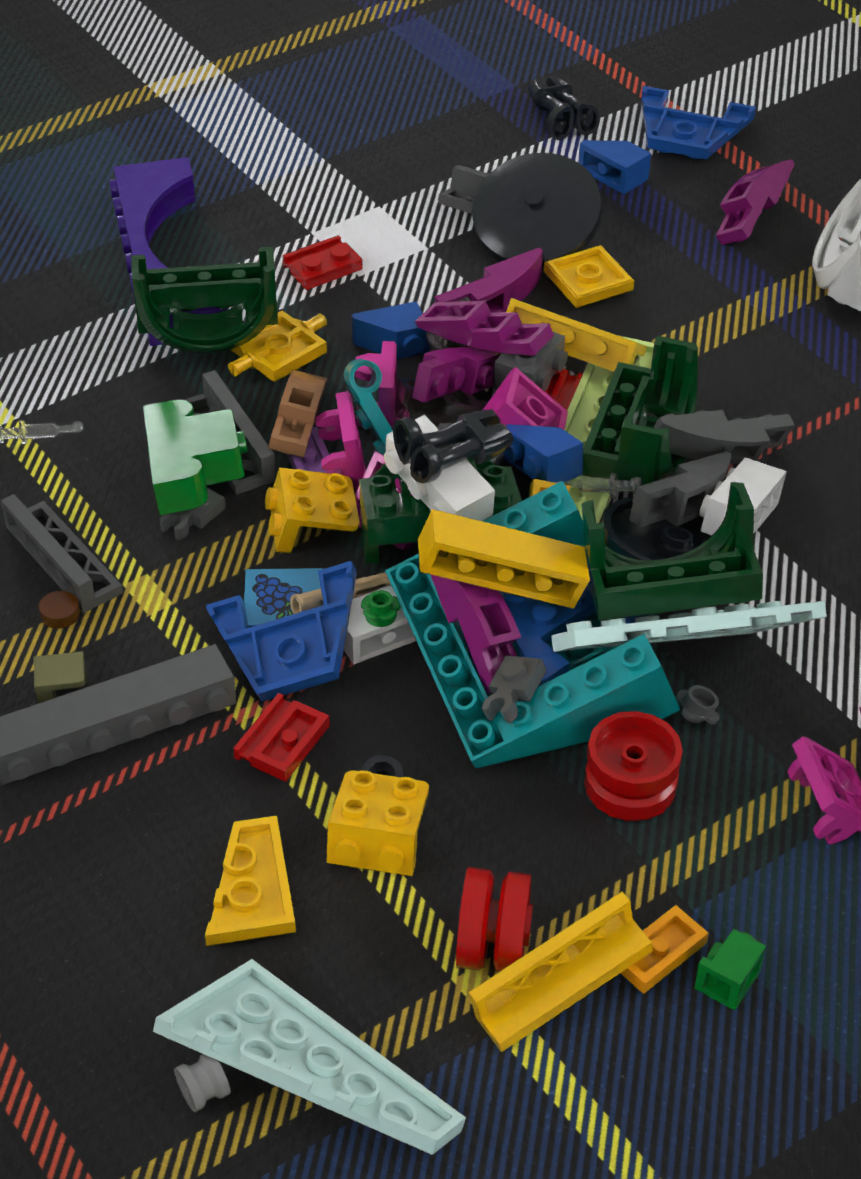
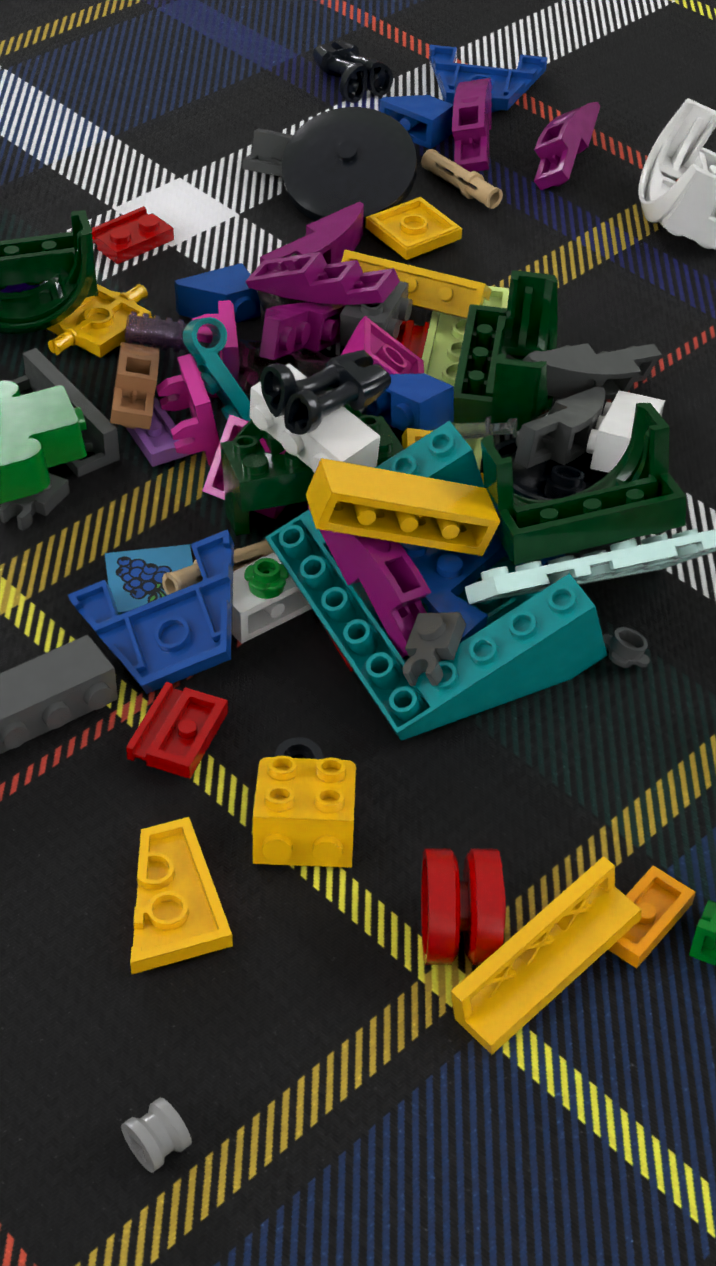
camera: 10 degrees left, 0 degrees up
(287, 1041) = (248, 1075): light aqua wing -> none
(309, 501) = (163, 473): yellow bracket -> none
(325, 362) = (155, 332): none -> clear purple piece
(633, 765) = (574, 719): red wheel -> none
(652, 234) = (484, 193): none -> tan pin
(664, 172) = (472, 124): none -> magenta slope

